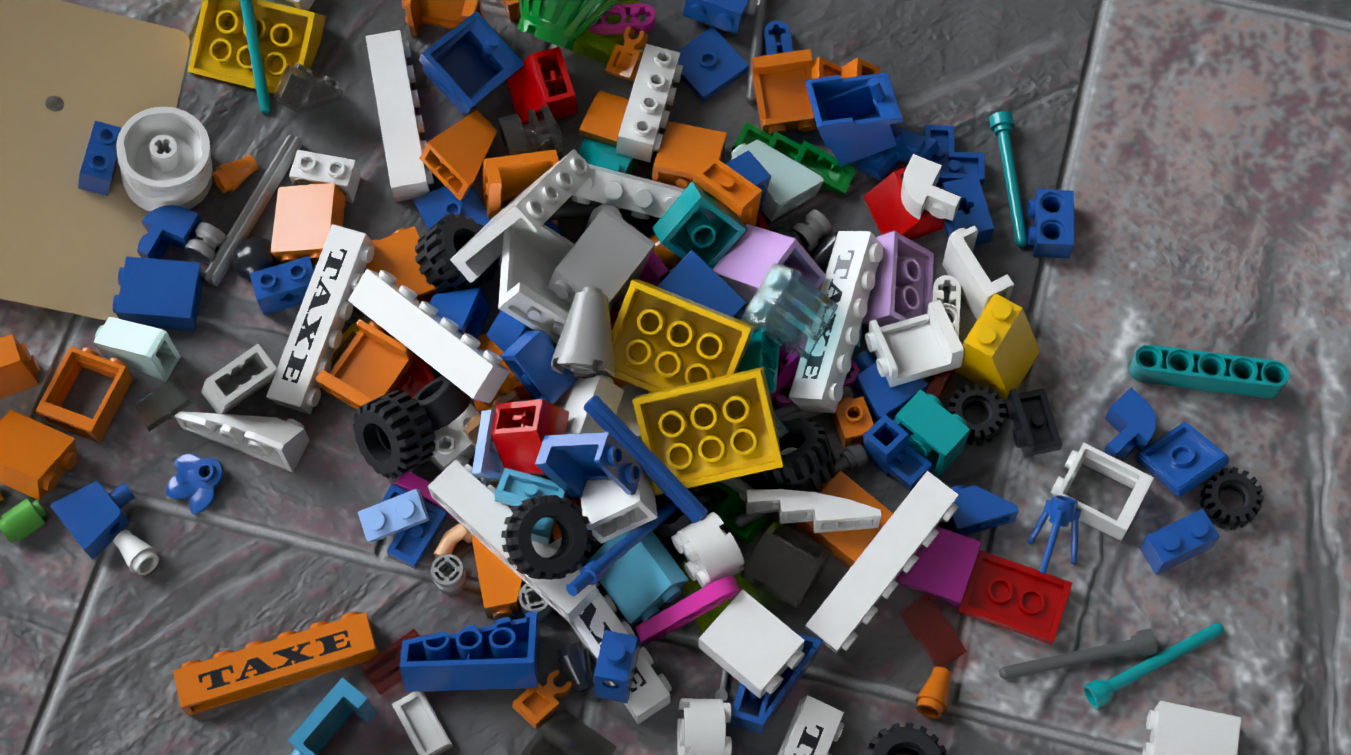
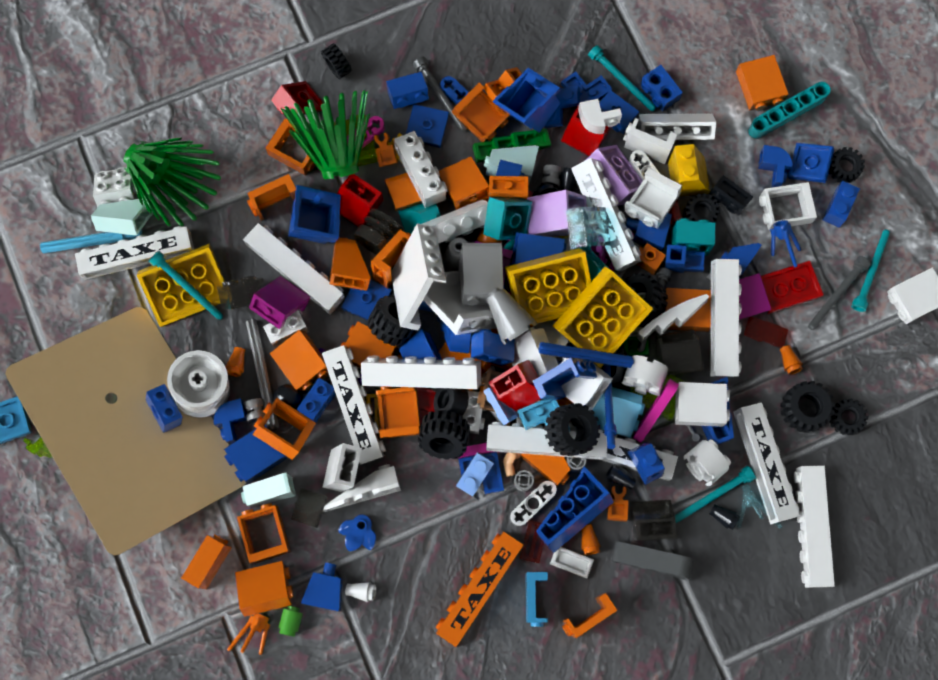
camera: 40 degrees left, 10 degrees up
(246, 302) = (291, 416): none -> orange window
(341, 132) = (278, 301): none -> magenta panel
(428, 603) = (540, 489): none -> white beam
(466, 715) = (589, 541): none -> orange cone
(1033, 283) = (685, 125): none -> white brick
(1199, 310) = (762, 83): none -> orange brick

